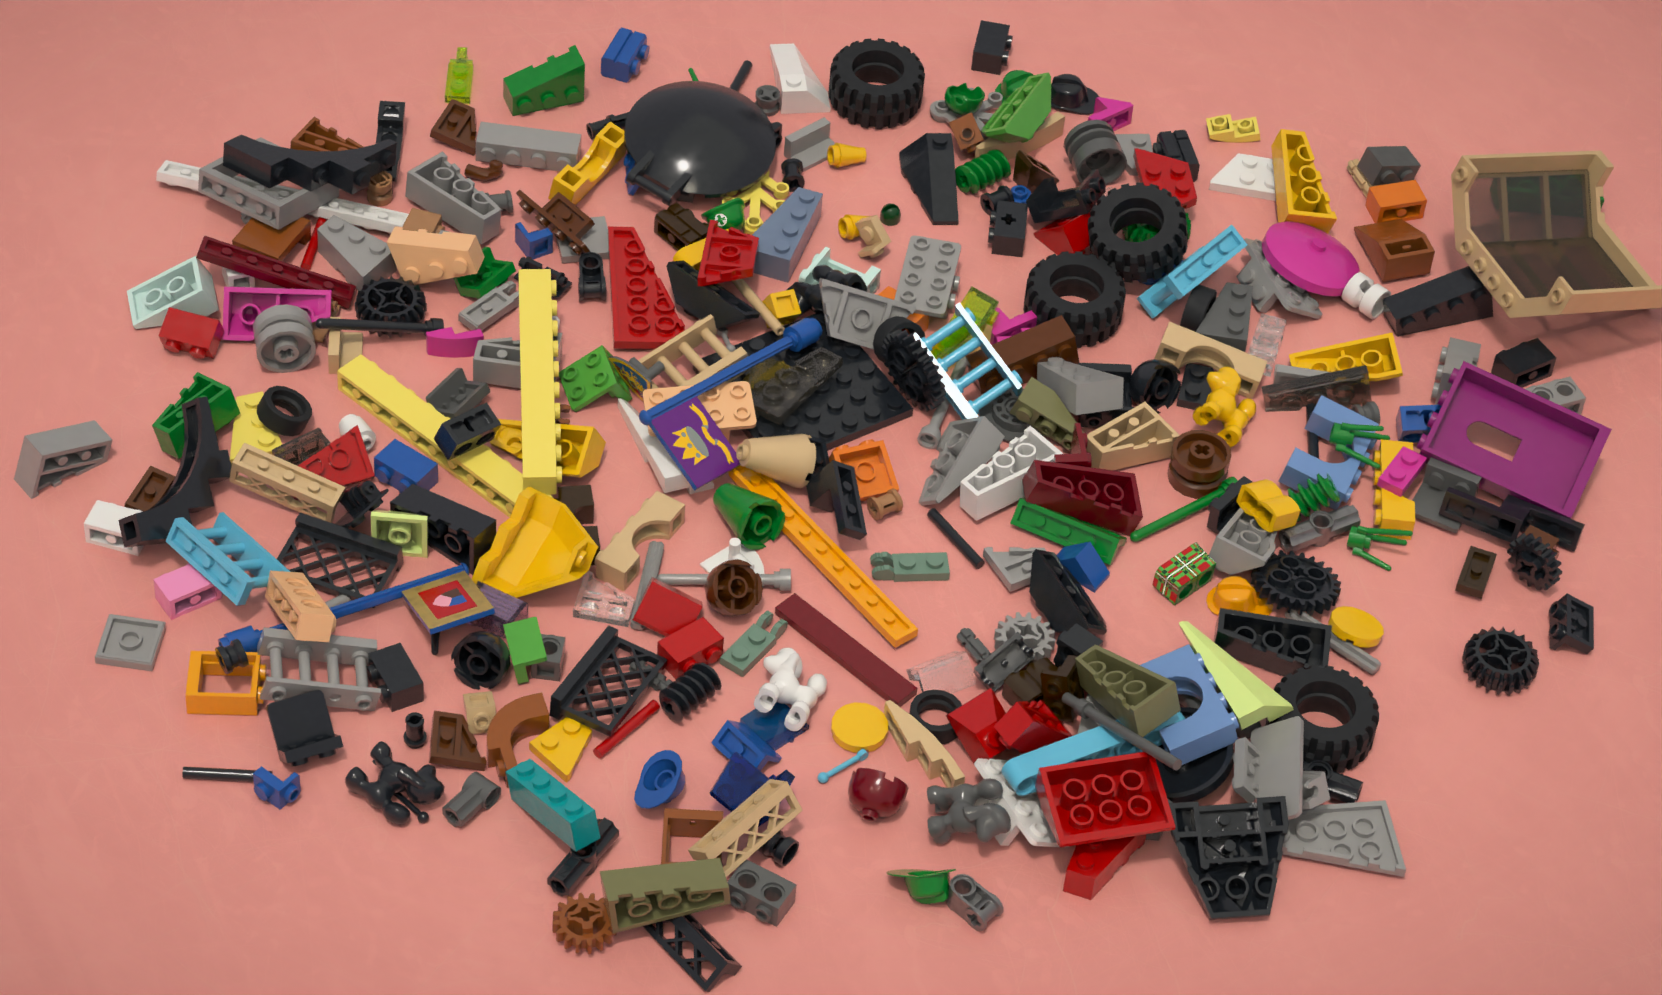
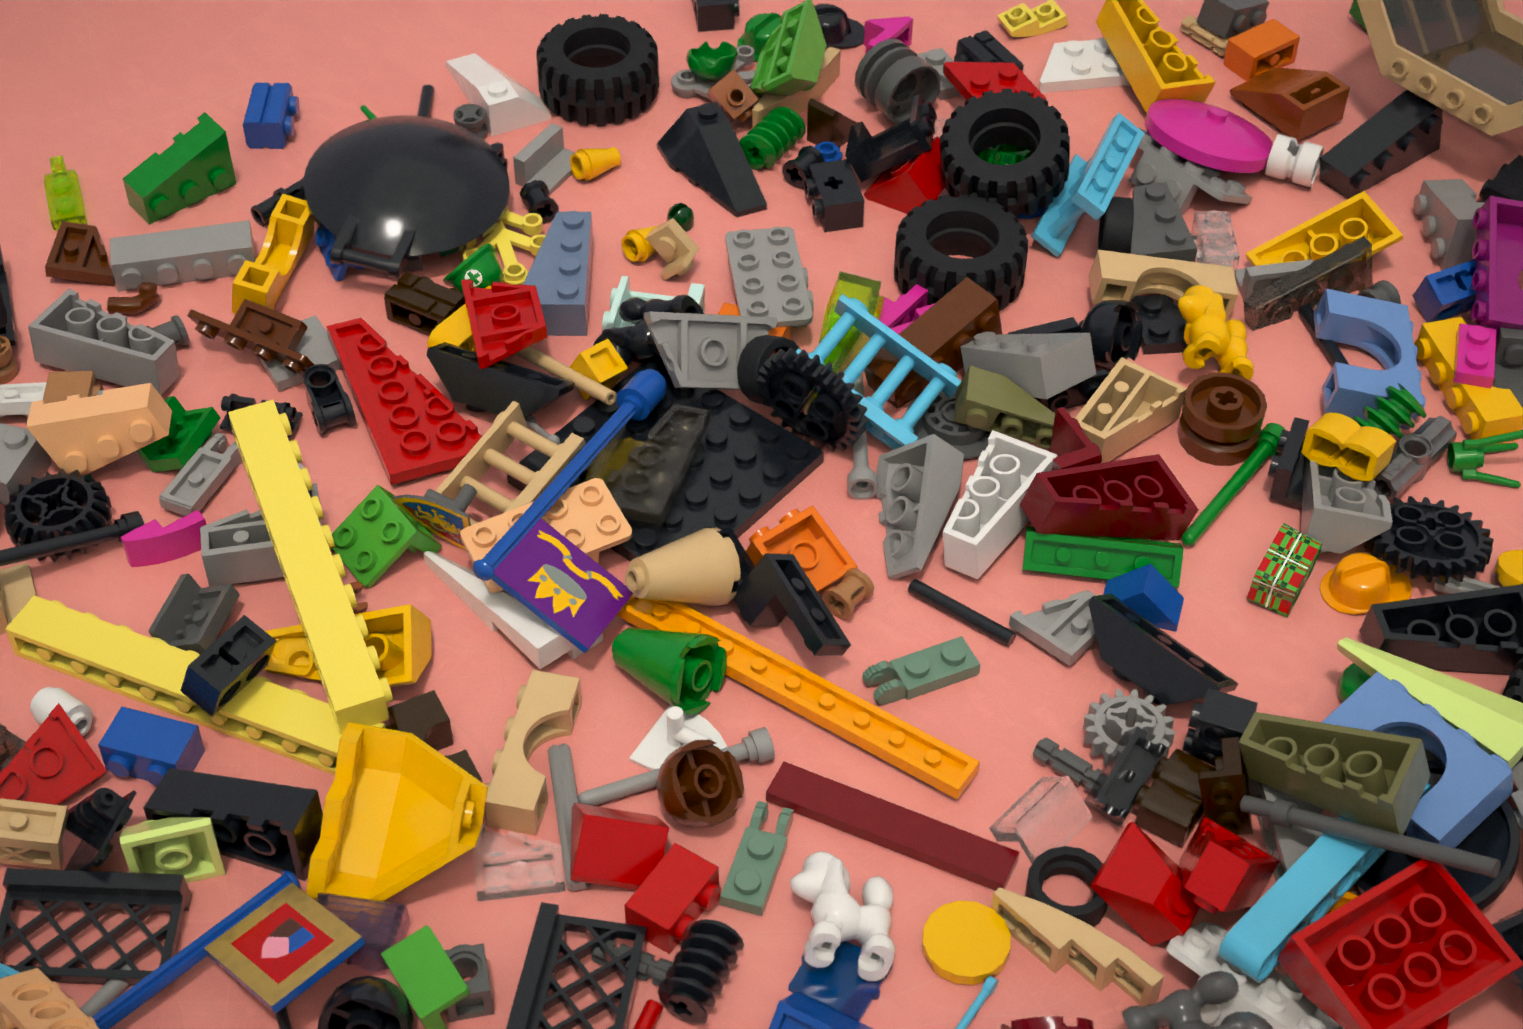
camera: 15 degrees left, 0 degrees up
(534, 243) = (233, 375): blue panel -> none
(1344, 434) = (1387, 328): green plant -> none

